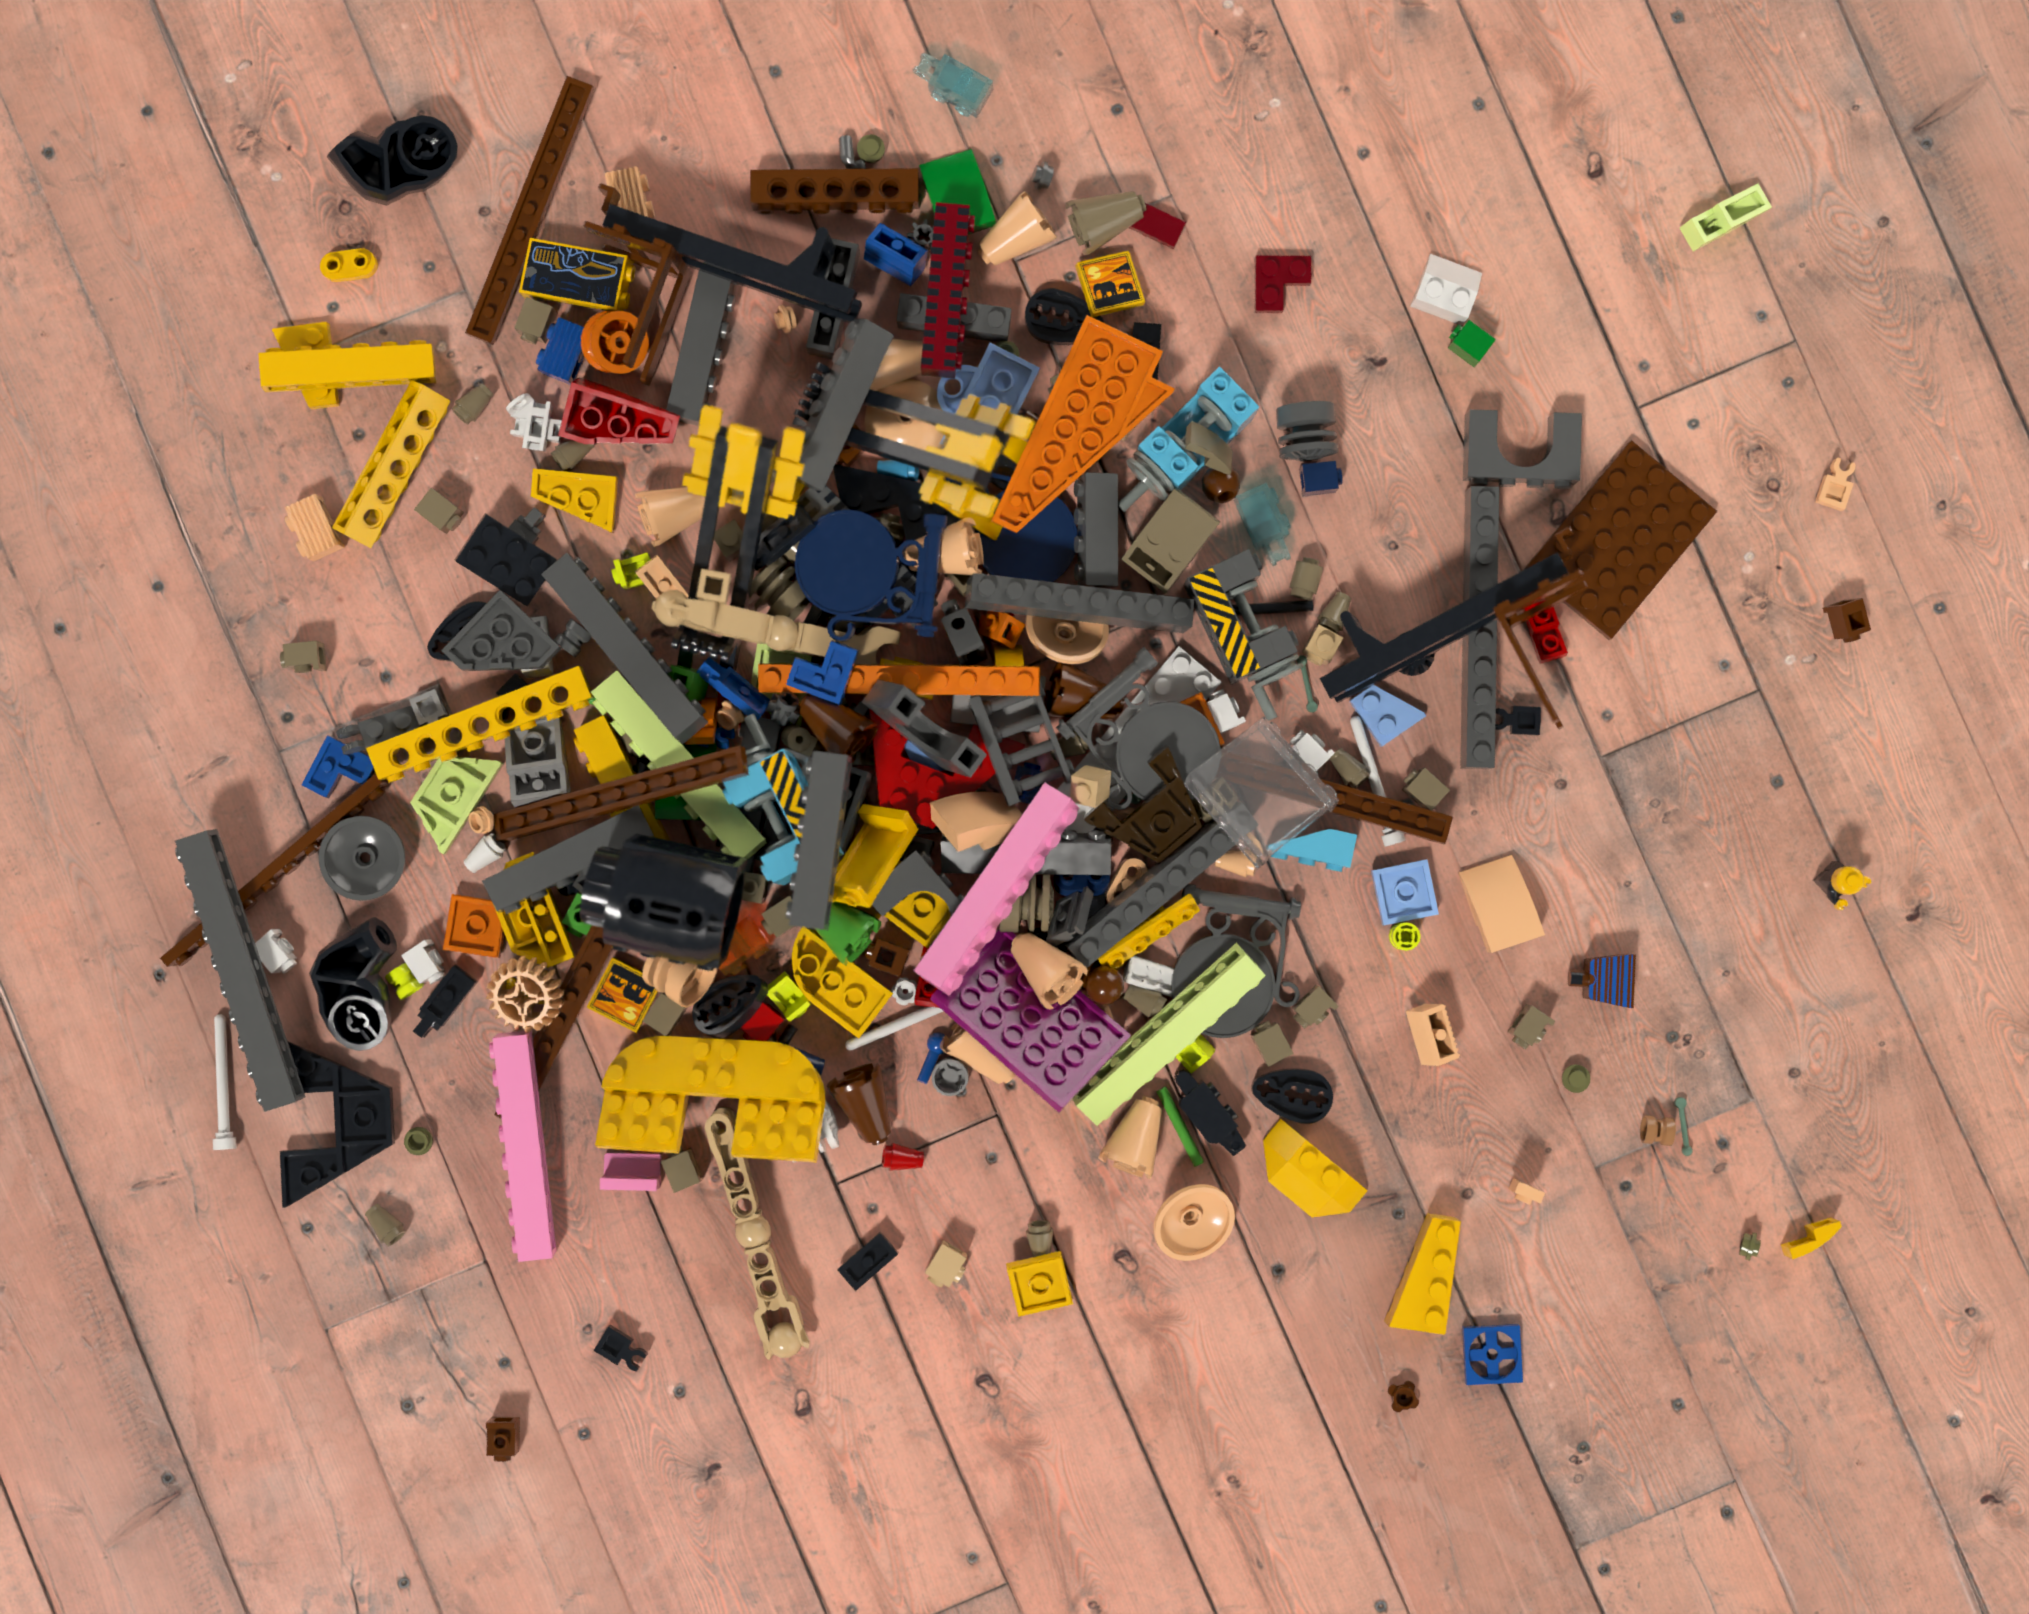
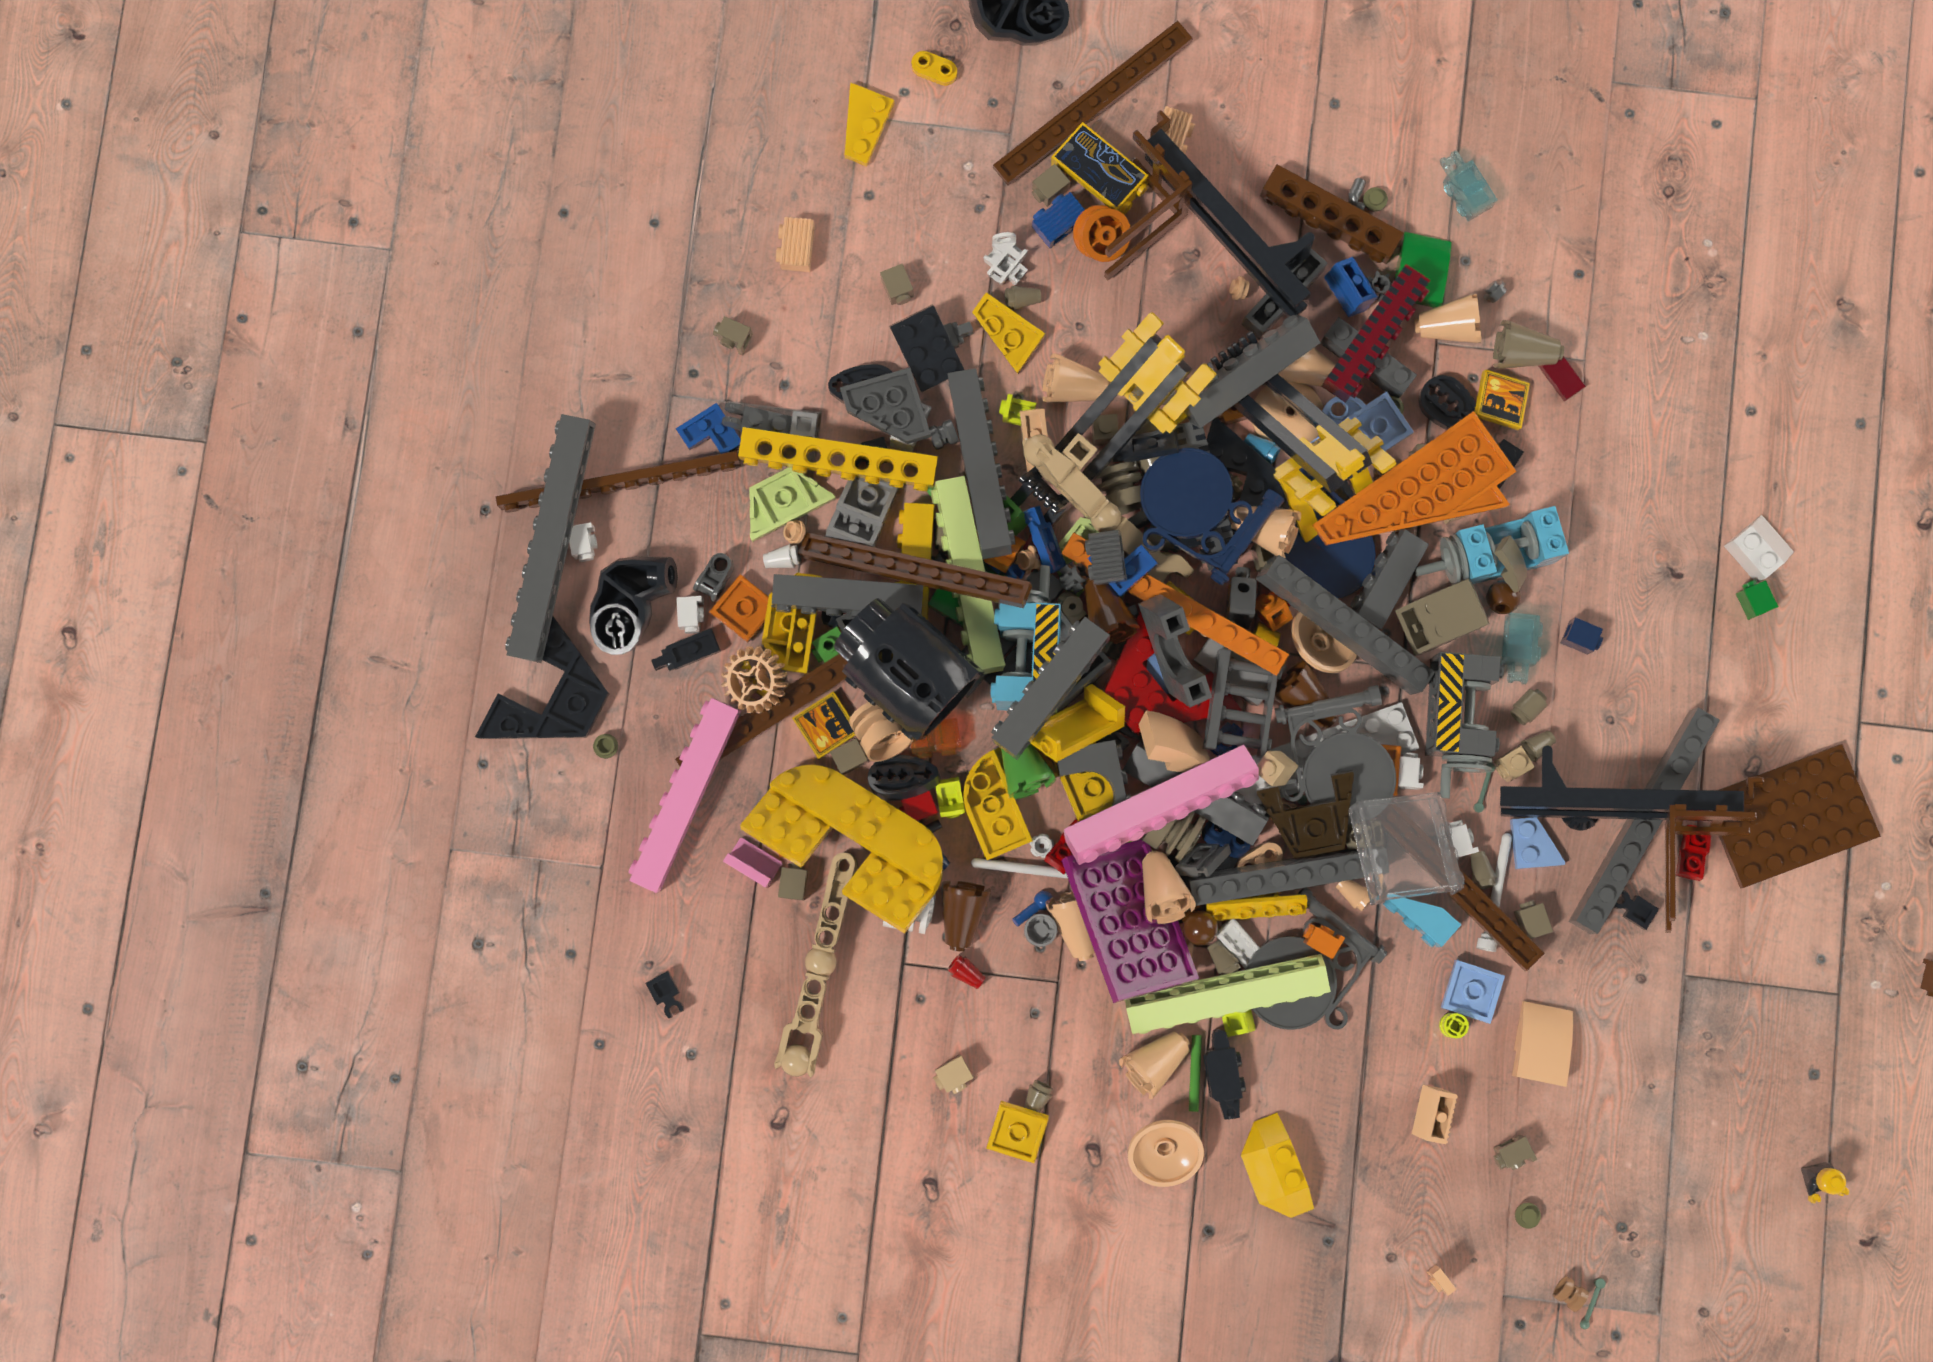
camera: 30 degrees right, 5 degrees down
(223, 1138) = (462, 658): white piece -> none
(342, 862) = (677, 495): dark grey dish -> none
(346, 367) = (891, 140): yellow brick -> none
(378, 467) = (869, 230): yellow brick -> none
(385, 1225) = (543, 795): dark tan cone -> none
(404, 981) = (666, 619): neon yellow wheel -> none
(428, 913) = (714, 578): none -> dark grey piece
(472, 404) = (966, 220): dark tan cone -> none
(509, 1430) = (545, 1006): reddish brown brick -> none
(610, 416) = (1064, 284): red wedge -> none
(701, 347) = (1162, 275): dark grey brick -> none
(755, 888) = (973, 700): dark tan bracket -> none
(775, 918) = (979, 734): dark tan brick -> none
(803, 674) = (1106, 557): none -> dark grey brick
(868, 1261) = (894, 1037): black plate -> none
(898, 961) = (1052, 816): reddish brown brick -> none
(1072, 746) = (1277, 731): dark tan cone -> none
(1231, 928) = (1322, 940): none -> orange brick
(1271, 1042) = (1303, 1048): dark tan brick -> none
(1274, 273) = (1629, 463): dark red plate -> none
(1278, 607) = (1497, 718): black bar -> none
(1302, 1080) = (1310, 1091): black piece -> none
(1307, 434) = (1593, 593): dark grey wheel -> none
(1313, 1007) = (1352, 1040): dark tan brick -> none
(1427, 1281) = (1324, 1305): yellow wedge -> none
(1486, 464) = (1718, 698): dark grey arch -> none
(1607, 979) = (1595, 1151): torso -> none

